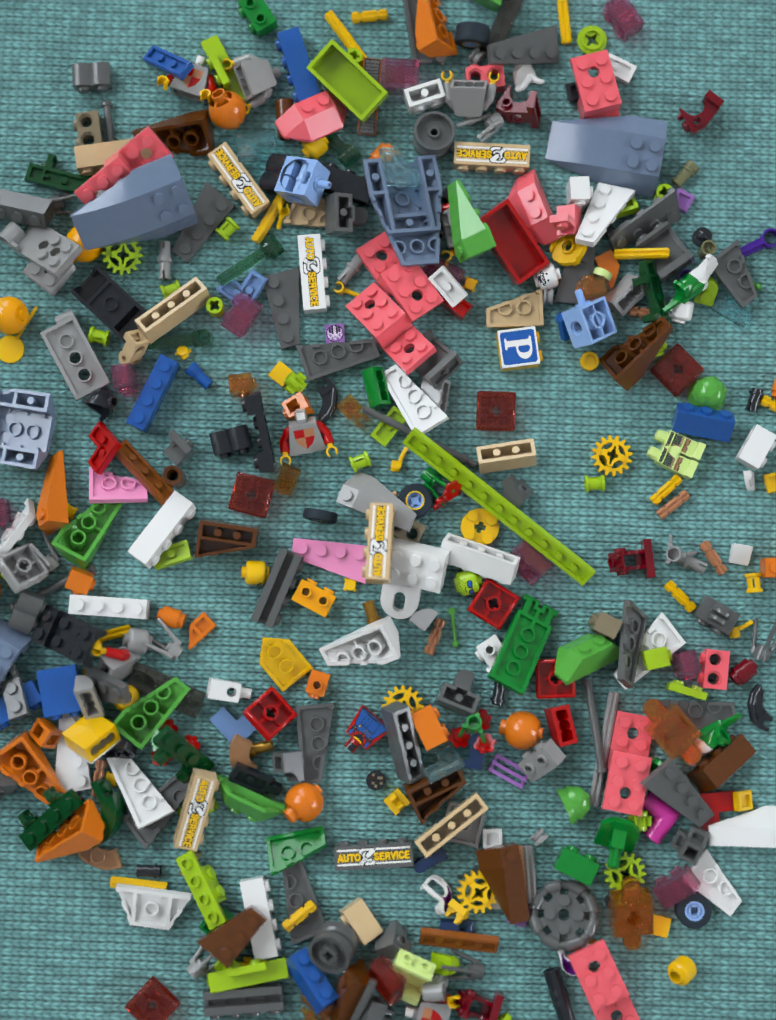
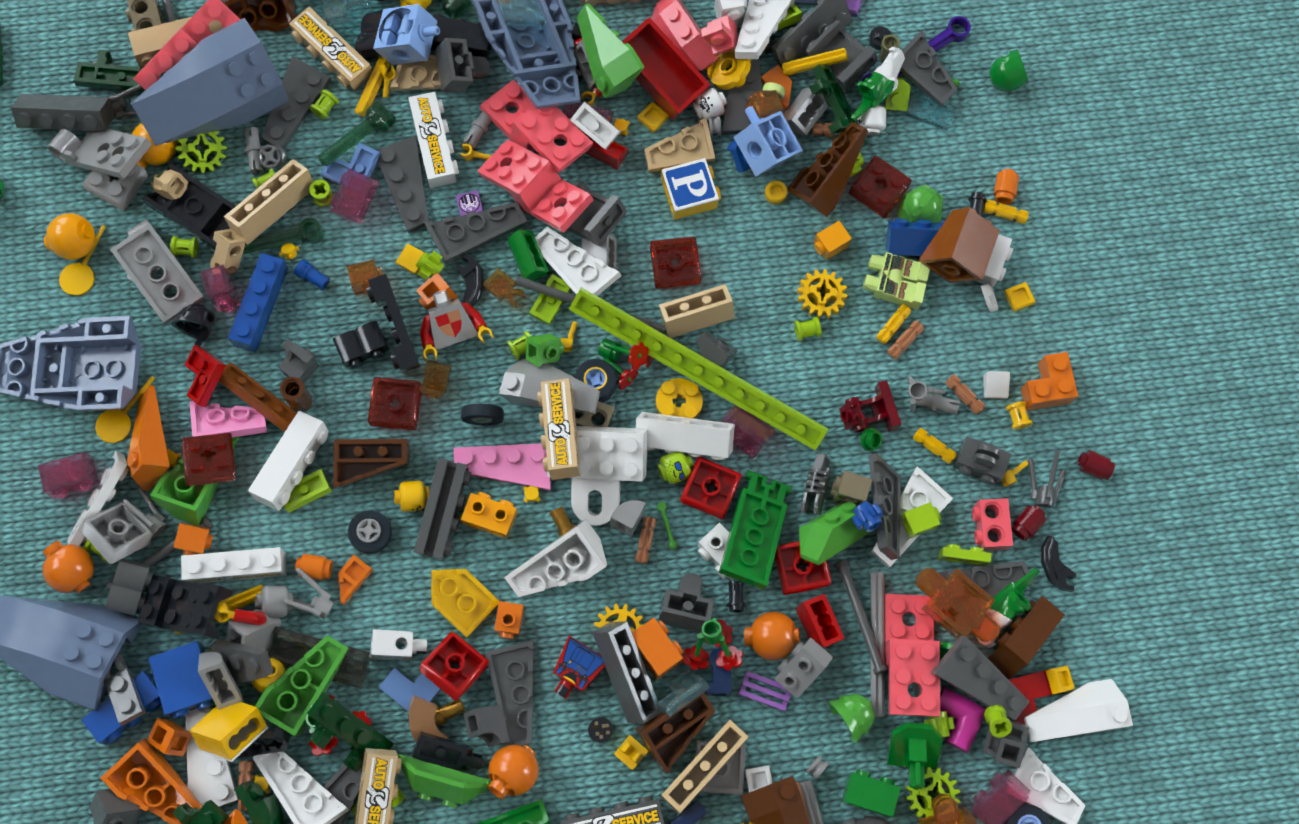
camera: 15 degrees left, 10 degrees down
(29, 479) = (116, 425): none -> yellow piece
(90, 527) = (217, 469): none -> clear red brick
(93, 284) = (169, 184): none -> tan rock
(174, 269) = (267, 157): none -> flat silver wheel
(211, 594) = (366, 524): none -> black wheel
(377, 469) = (543, 349): none -> bright green brick
(498, 279) = (653, 117): none -> yellow tile
(578, 613) = (816, 484): none -> dark grey hinge
(612, 653) = (867, 516): none -> blue gear
(627, 411) = (832, 240): none -> light orange brick
(629, 583) = (871, 439): none -> green plate
(685, 664) = (958, 522): clear pink brick -> none
(686, 831) = (998, 723): none -> lime bush
(733, 438) = (961, 247): none -> dark orange slope

